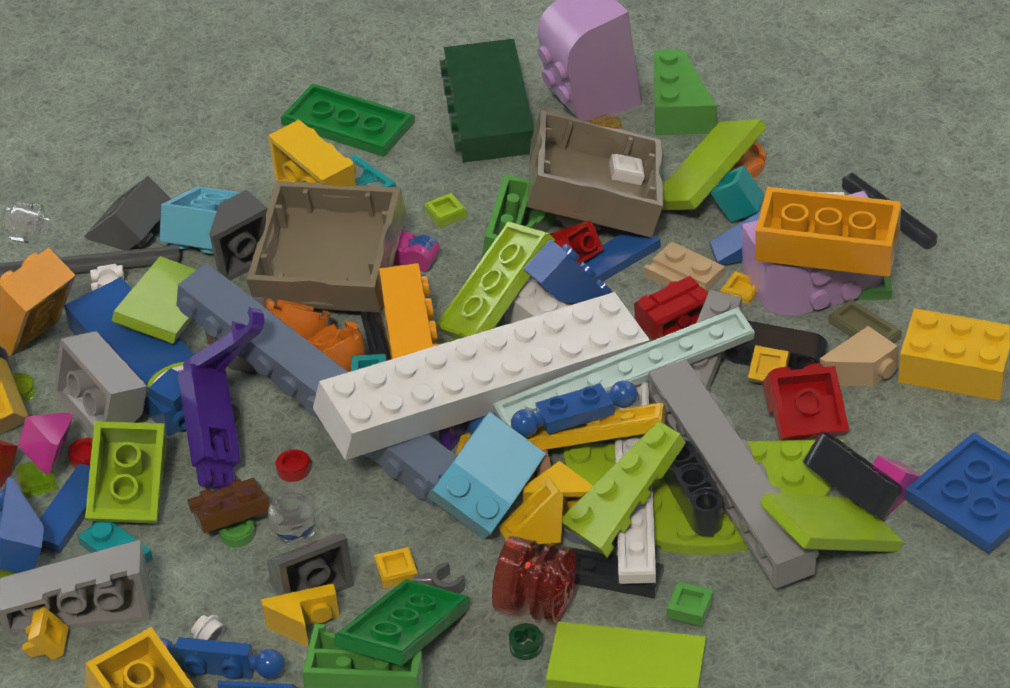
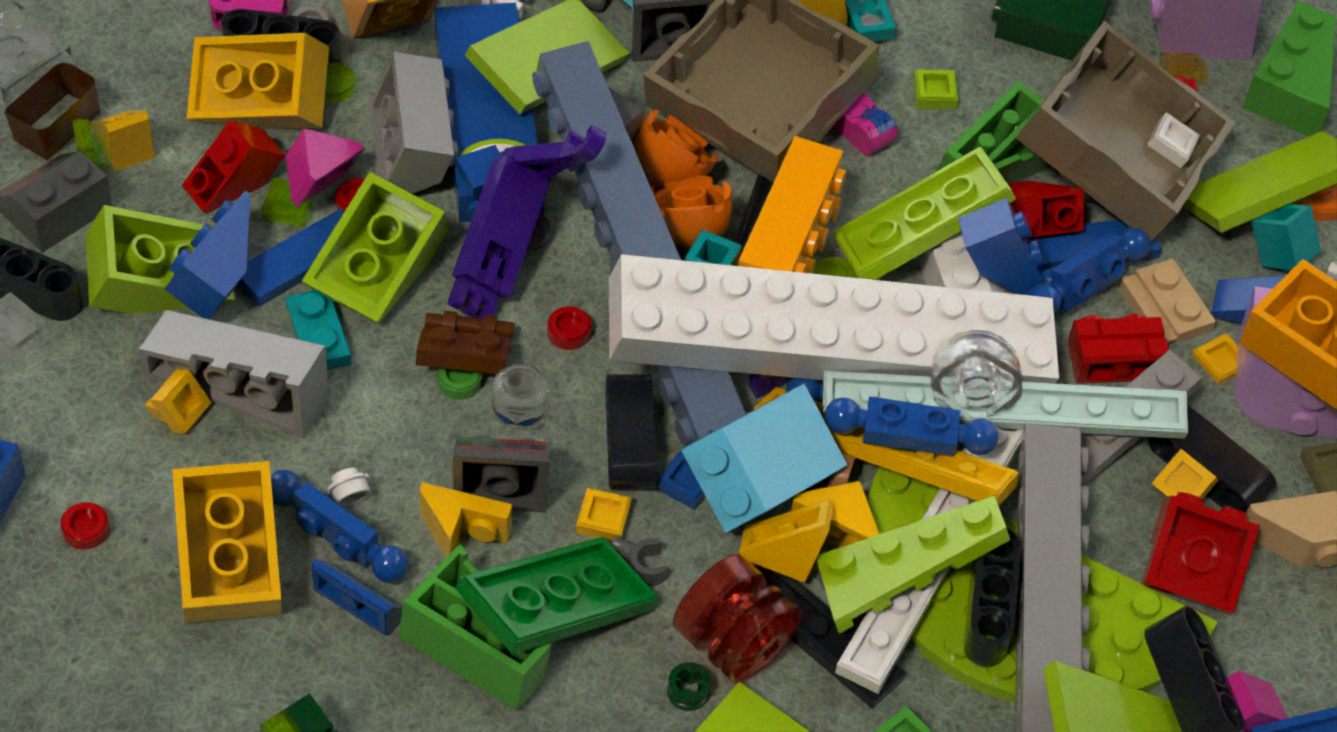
camera: 20 degrees right, 10 degrees up
(381, 506) = (630, 431): none -> black beam
(436, 522) = (680, 483): none -> blue tile
(600, 353) = (976, 374): none -> clear cylinder
(627, 265) = (1093, 268): none -> blue plate

